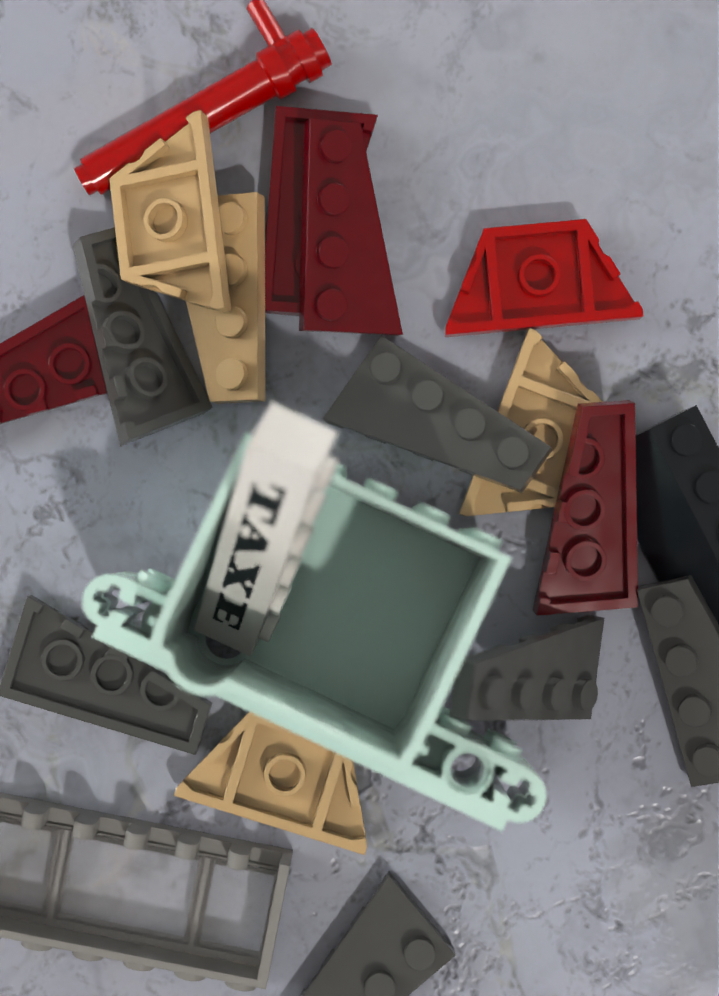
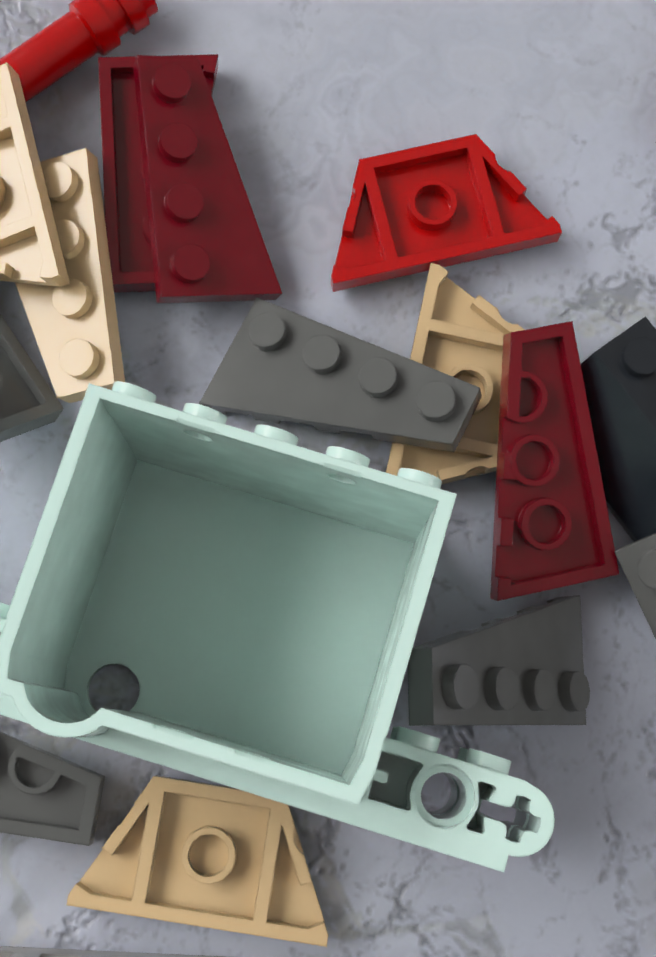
camera: 15 degrees left, 10 degrees down
(267, 528) = (132, 508): white brick -> none

